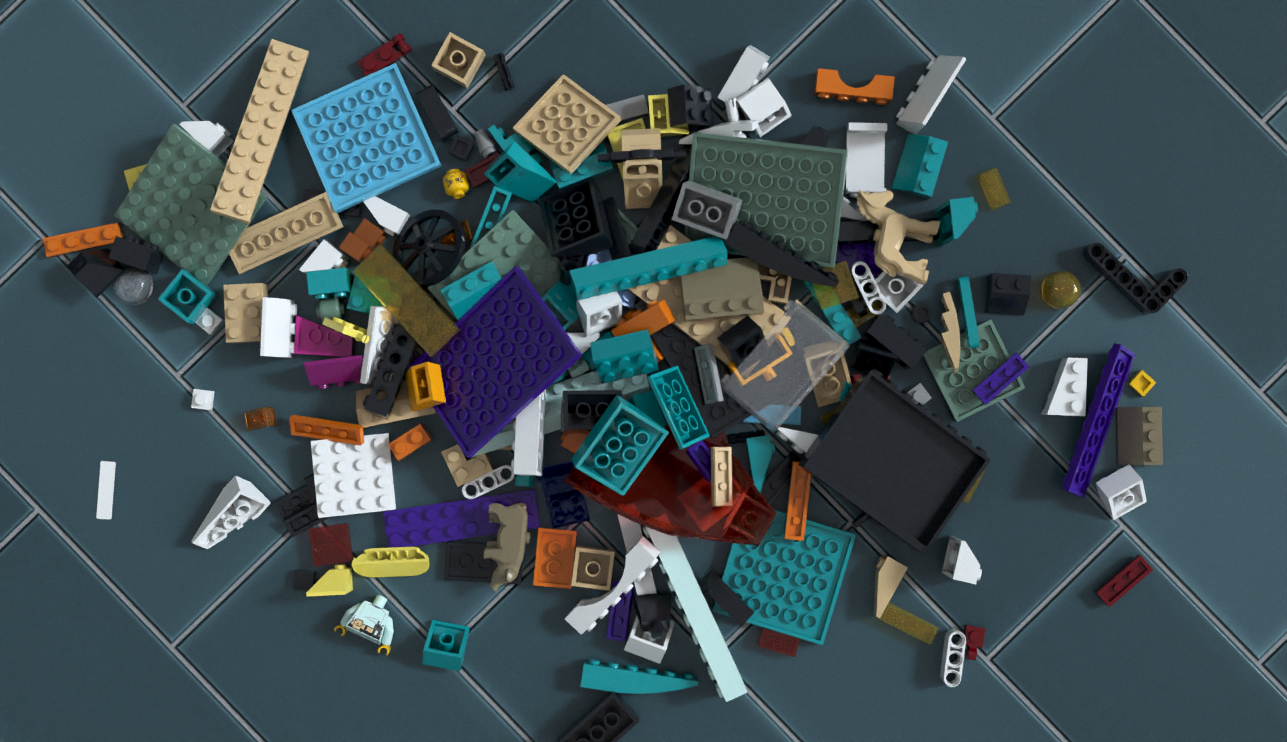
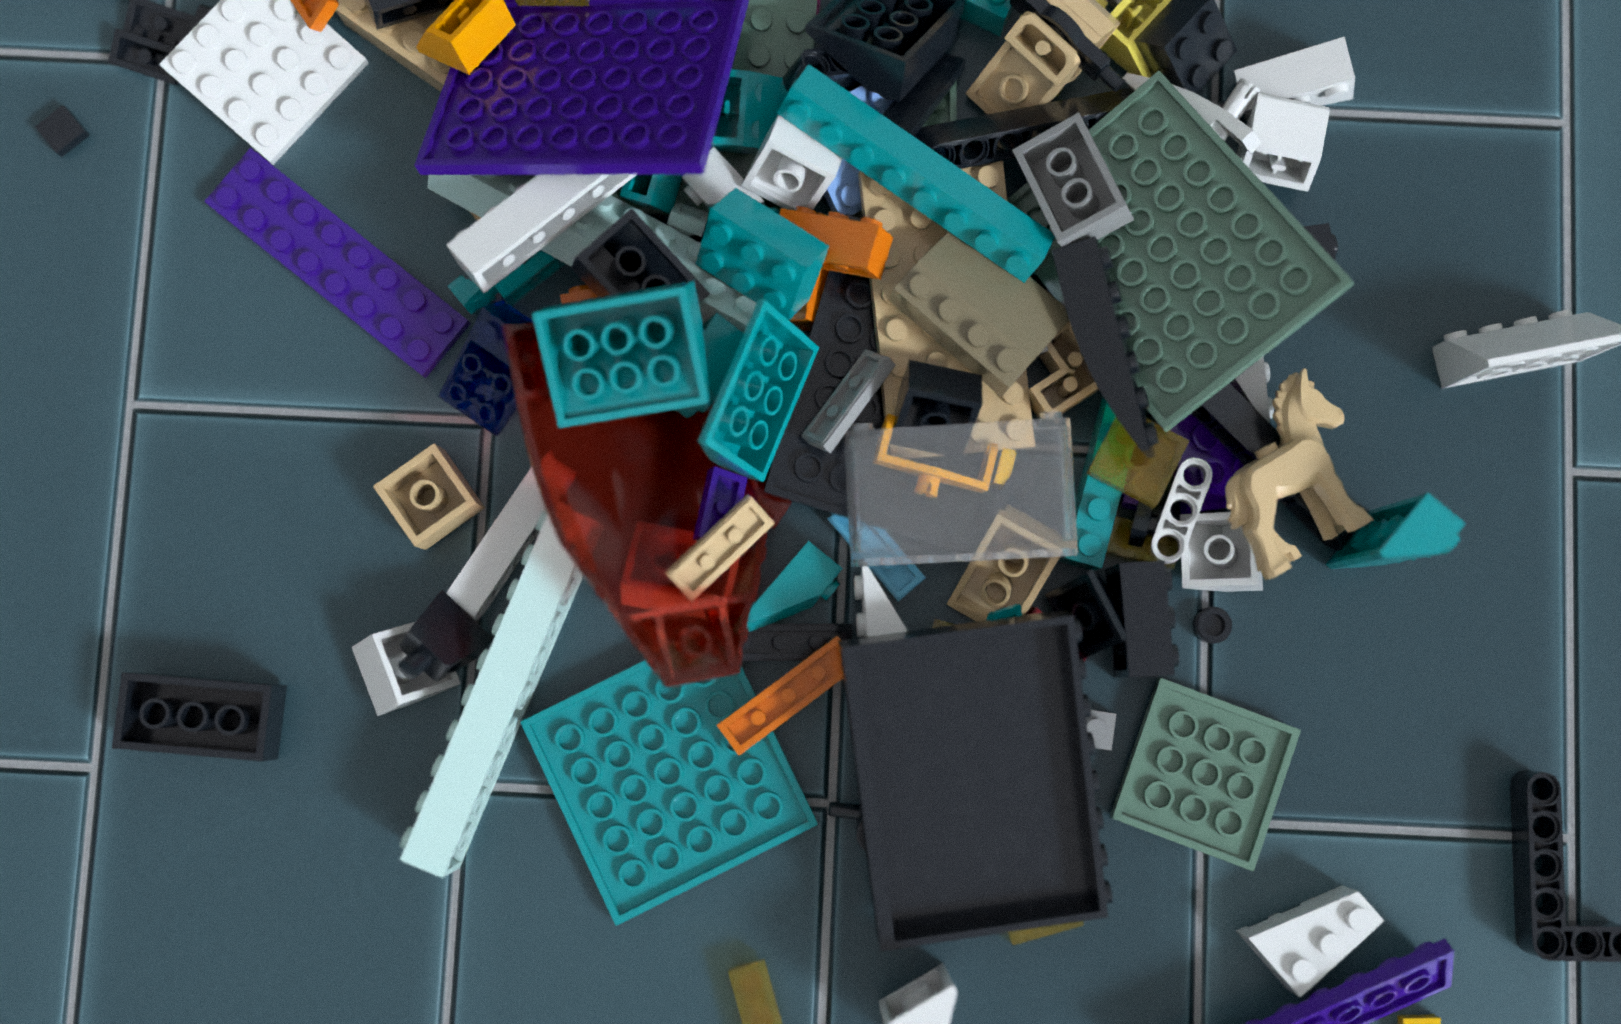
camera: 45 degrees right, 5 degrees down
(331, 544) = (142, 120): clear red plate -> none
(334, 582) = (88, 165): light yellow slope -> none
(369, 622) = (76, 266): light aqua torso -> none
(391, 562) = (188, 219): light yellow brick -> none
(410, 442) = (379, 96): orange brick -> none
(445, 645) = (137, 396): teal slope -> none
(462, 468) = (410, 204): tan brick -> none
(467, 563) = (304, 346): black tile -> none
(480, 485) = (407, 240): white beam -> none
(510, 543) = (357, 349): dark tan animal -> none
(554, 558) = (396, 431): orange plate -> none
(587, 611) = (486, 540): white arch -> none
(620, 616) = (403, 592): dark purple plate -> none
(631, 679) = (320, 697): teal slope -> none
(726, 597) = (555, 722): black slope -> none
(741, 437) = (792, 527): black axle -> none
(778, 642) = (562, 858): clear red plate -> none
(830, 85) = (1450, 276): orange arch -> none
(865, 157) = (1352, 342): white panel -> none
(887, 578) = (796, 931): tan slope -> none
(919, 165) = (1411, 430): teal slope -> none
(950, 338) = (1222, 694): tan slope -> none
(968, 312) = (1280, 688): teal beam -> none
(994, 189) = (1479, 564): clear yellow plate -> none
(1000, 378) = (1233, 821): dark purple plate -> none
(1007, 293) = (1359, 719): black slope -> none
(1060, 289) = (1436, 791): clear yellow cylinder -> none

